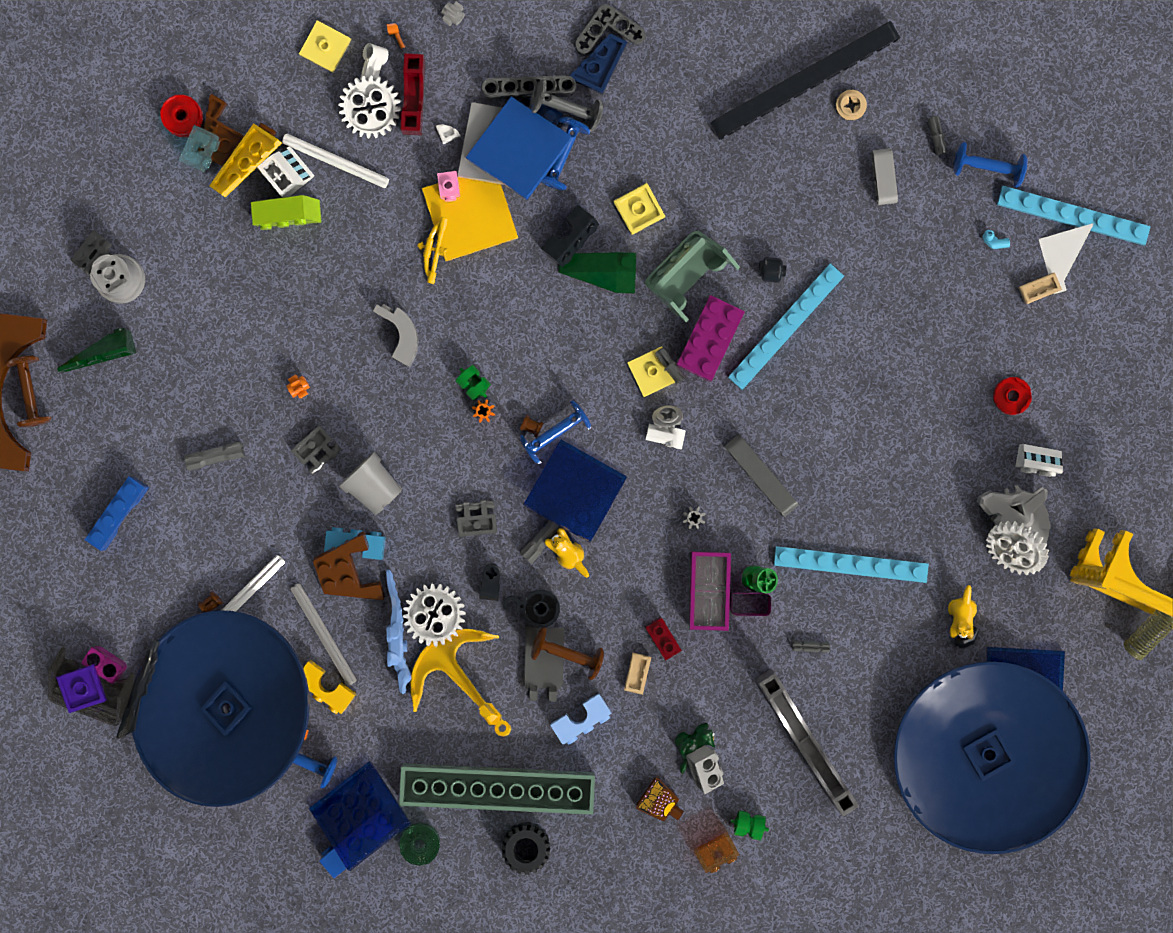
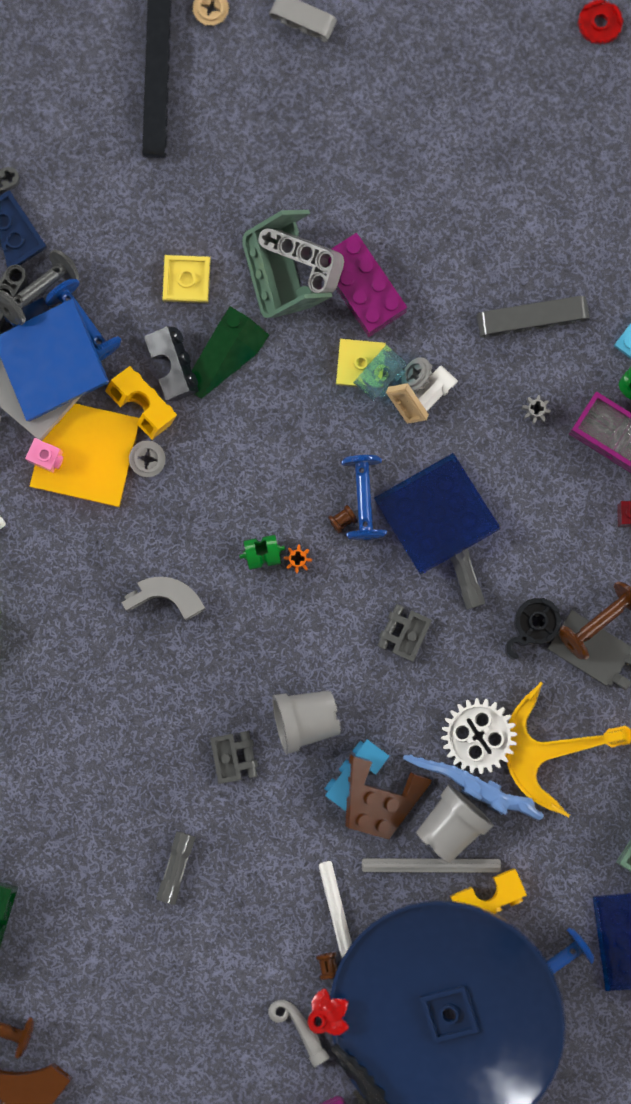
camera: 60 degrees left, 5 degrees down
(111, 519) = (173, 1008): blue arch -> none
(157, 615) = (310, 1039): none -> light grey plant
(178, 623) = (330, 1012): none -> red plate
(298, 386) = (156, 736): orange gear -> none
(359, 633) = (453, 824): none -> light grey piece
(428, 248) = (104, 507): yellow piece -> none
(488, 268) = (155, 452): none -> light grey gear
(490, 586) = (483, 661): black piece -> none
(536, 217) = (130, 387): none -> yellow arch
(569, 554) = (497, 558): yellow animal -> none
(641, 422) = (407, 403): none -> tan plate
(643, 384) = (388, 362): none -> clear light blue brick
(670, 365) = (366, 341): dark grey axle -> none
(704, 280) = (300, 253): none -> light grey beam
(772, 269) = (329, 182): black head -> none
(786, 326) = (395, 204): medium azure plate -> none

